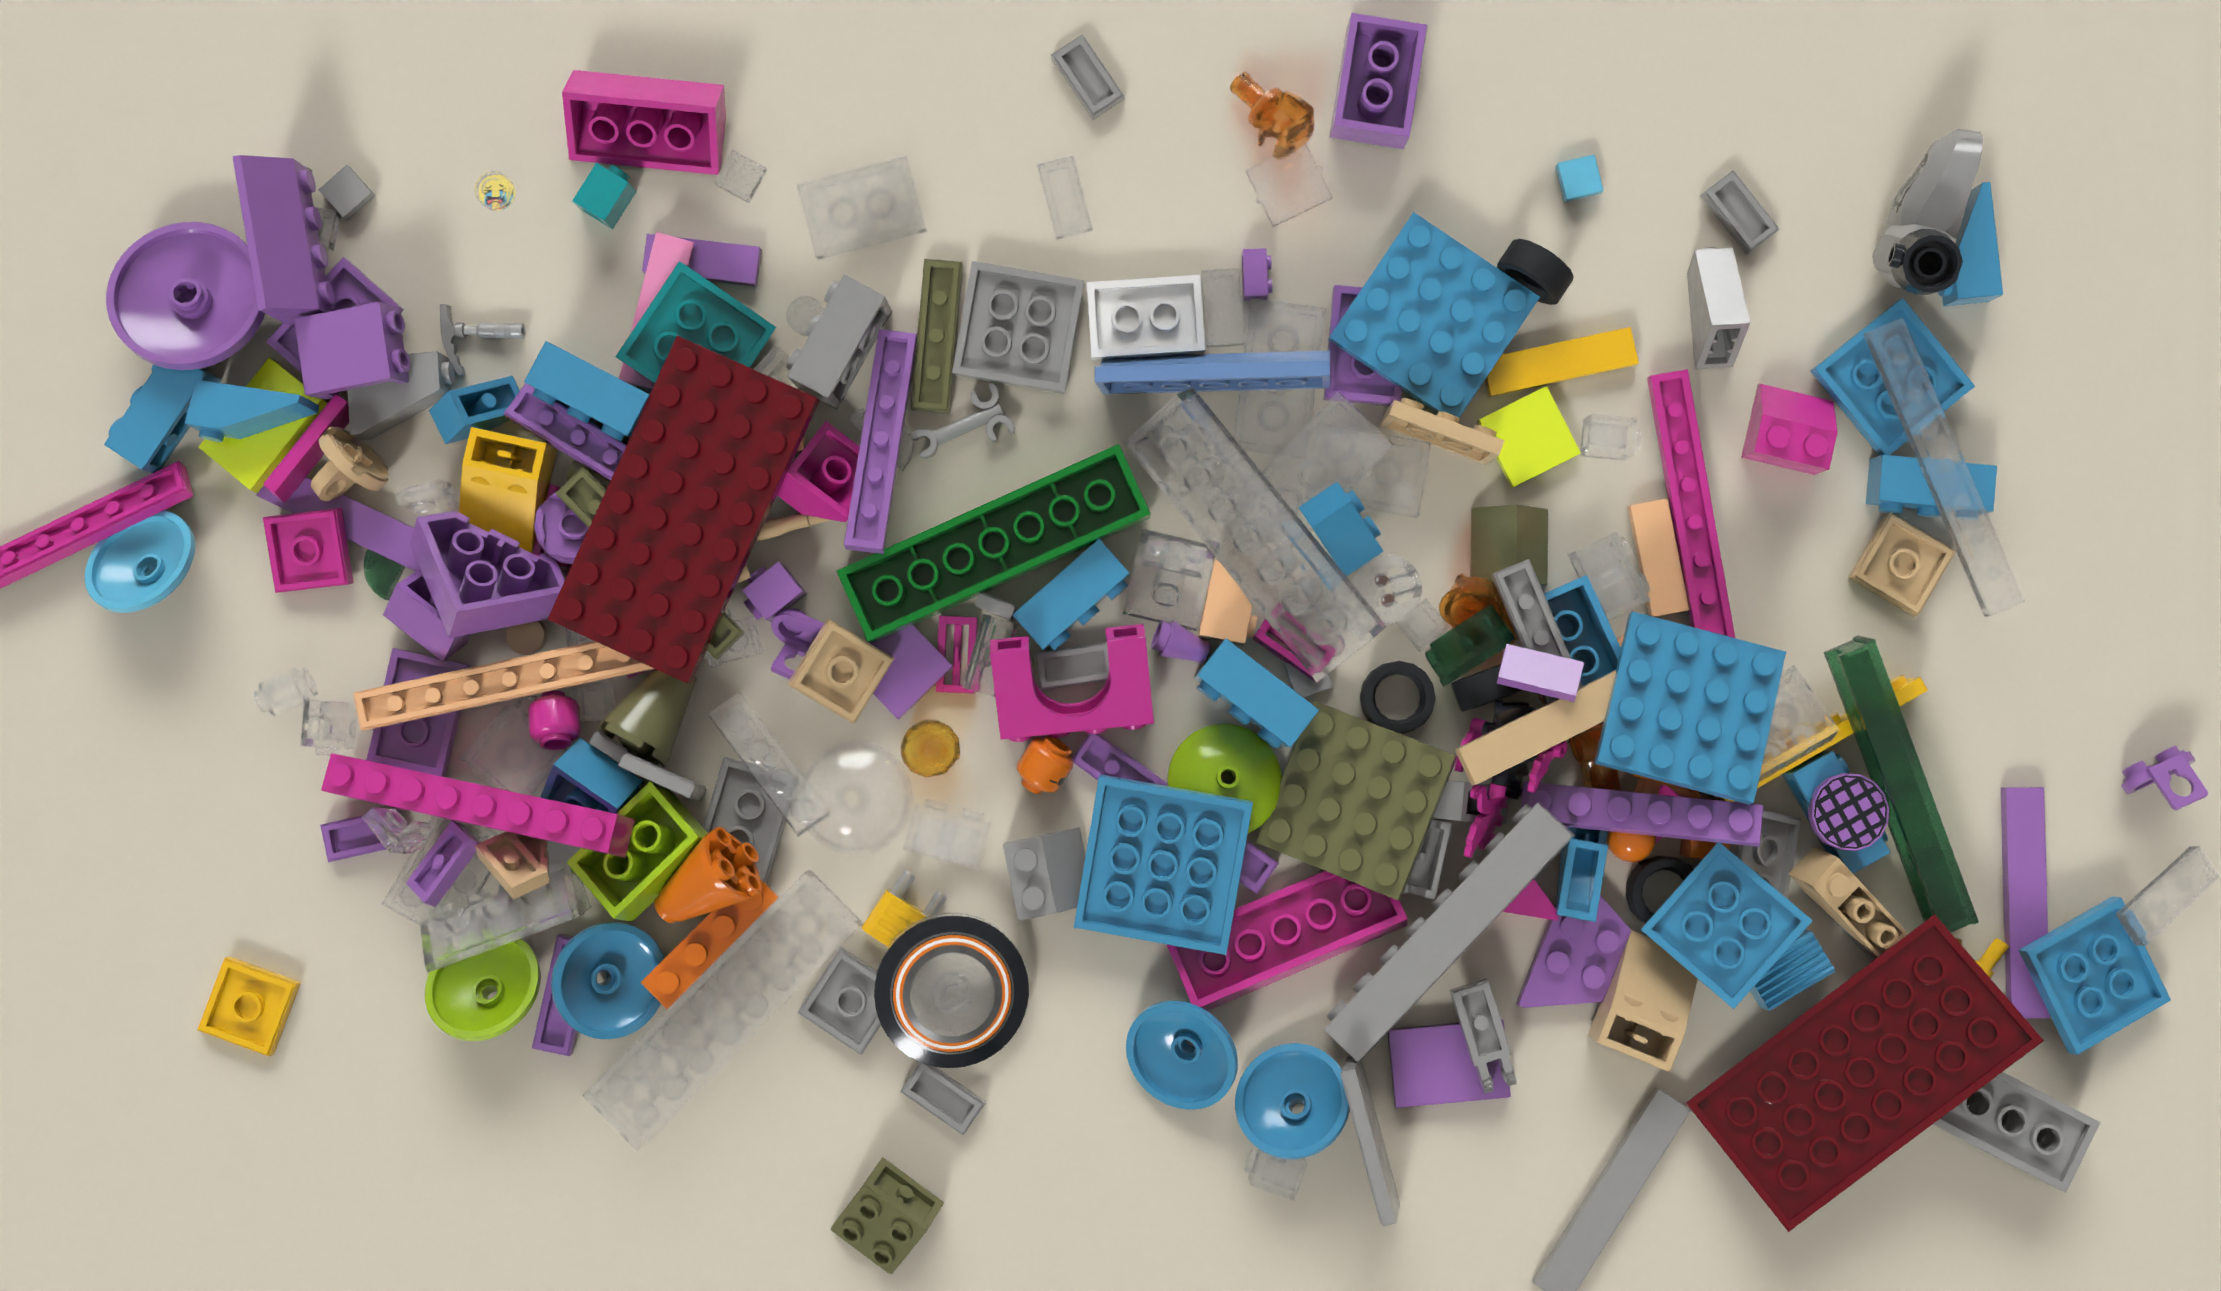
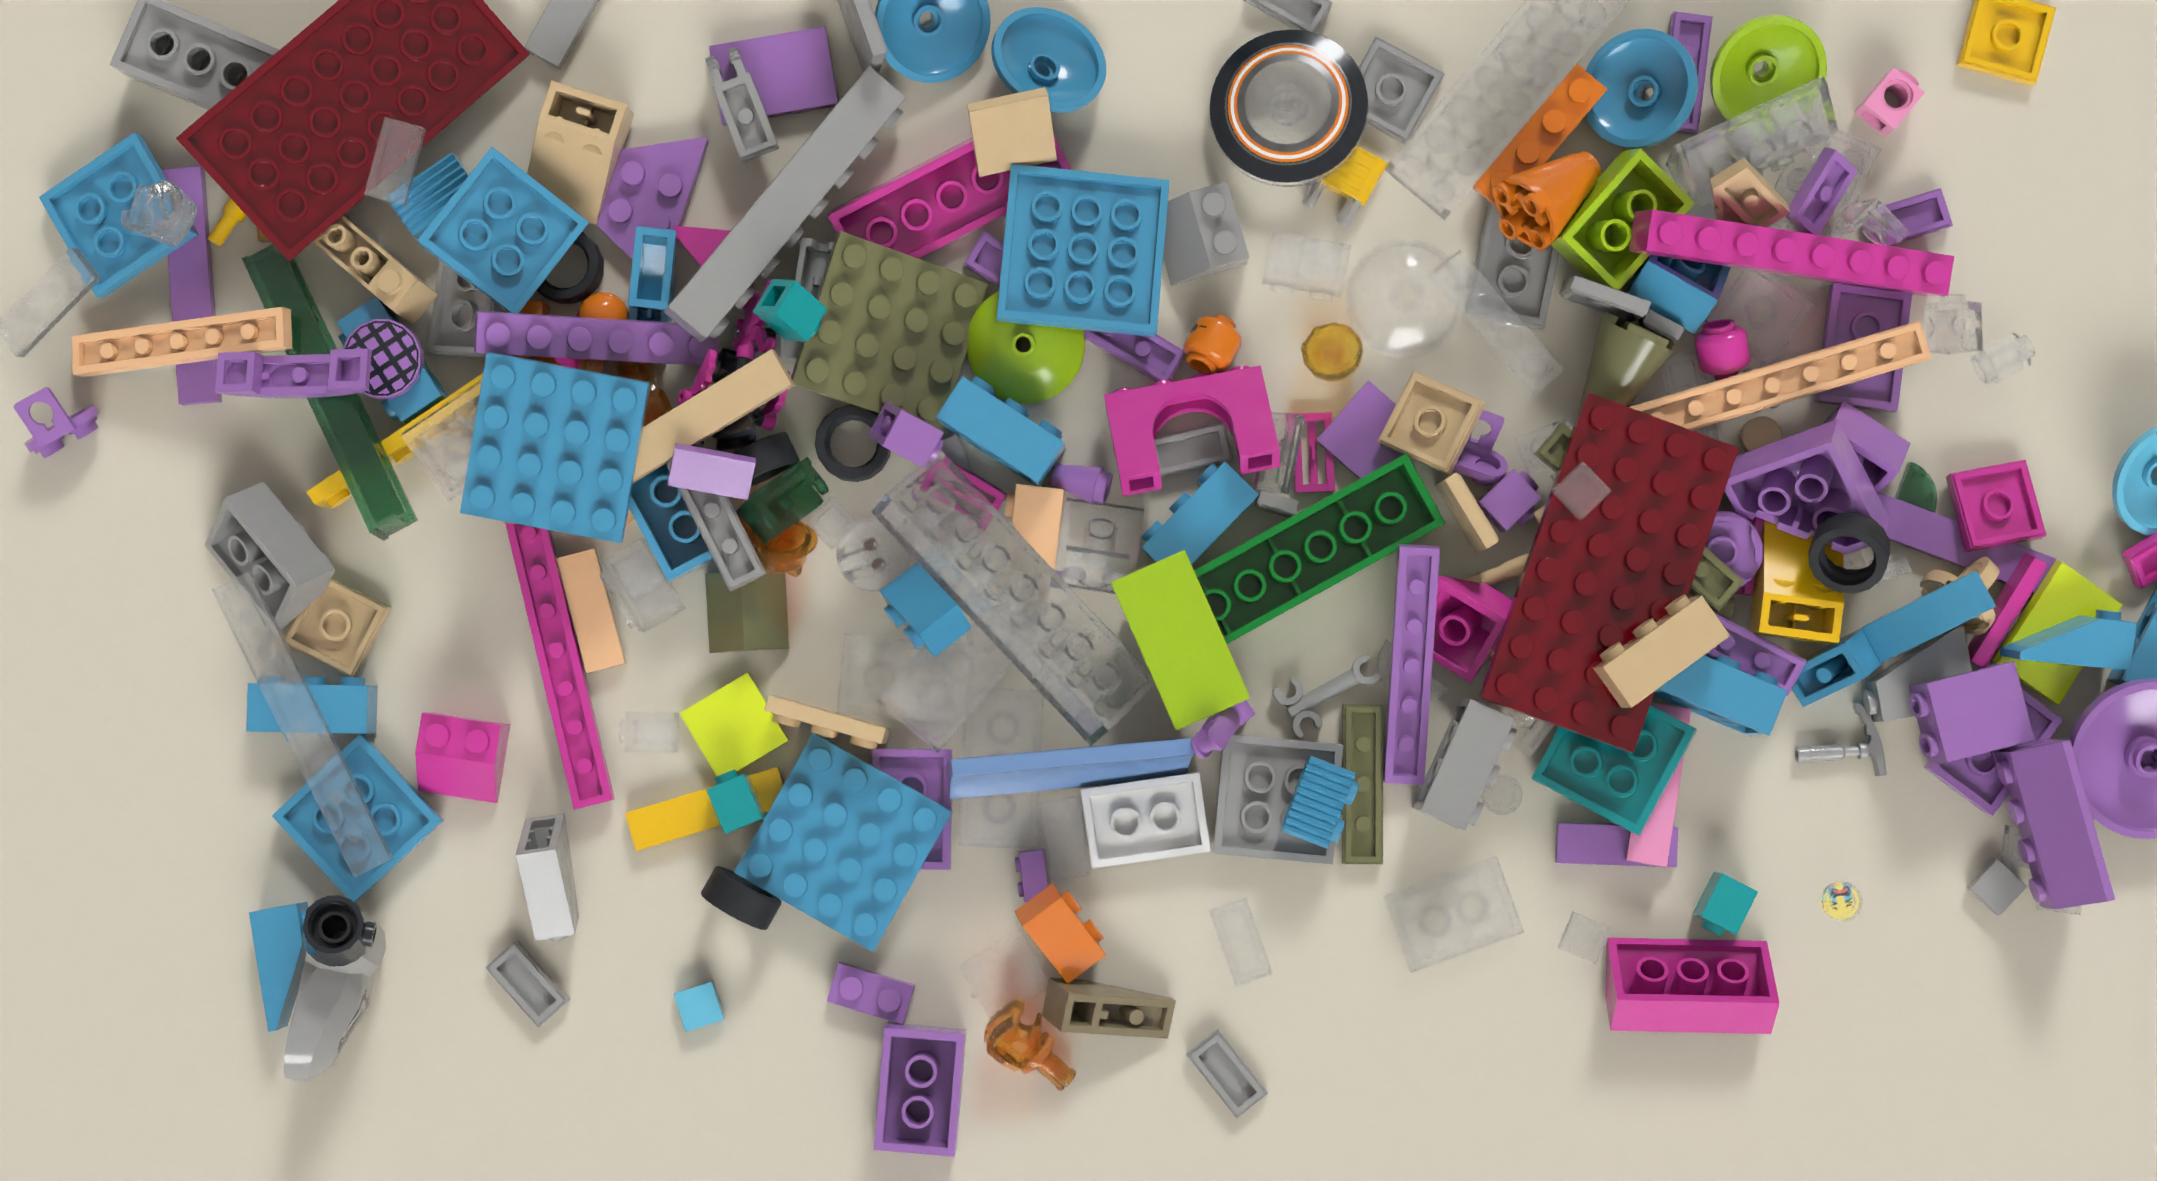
camera: 175 degrees left, 0 degrees up
(382, 443) = (1928, 616): none -> dark azure slope
(383, 944) = (1875, 109): none -> bright pink brick
(453, 485) = (1844, 579): none -> black tyre
(641, 426) = (1660, 650): none -> tan brick
(702, 586) = (1581, 490): none -> clear tile
(814, 580) = (1467, 512): none -> tan tile
(980, 317) = (1319, 802): none -> dark azure brick
(1058, 408) = (1220, 728): none -> medium lavender piece
(1100, 477) = (1180, 640): none -> lime tile
(1200, 143) = (1106, 1009): none -> dark tan slope
(1223, 985) = (1012, 131): none -> tan tile
(1234, 215) = (1060, 933): none -> orange brick
(1348, 695) = (906, 435): none -> medium lavender brick
(1416, 178) = (871, 993): none -> medium lavender plate
(1453, 824) = (790, 310): none -> teal brick
(1534, 362) = (735, 801): none -> teal brick
(1826, 1004) = (395, 161): none -> clear tile
(1939, 800) = (293, 375): none -> medium lavender slope
(1972, 649) = (263, 538): none -> light grey slope
(2040, 844) = (181, 341): none -> light nougat plate
(2059, 970) = (160, 213): none -> clear hair

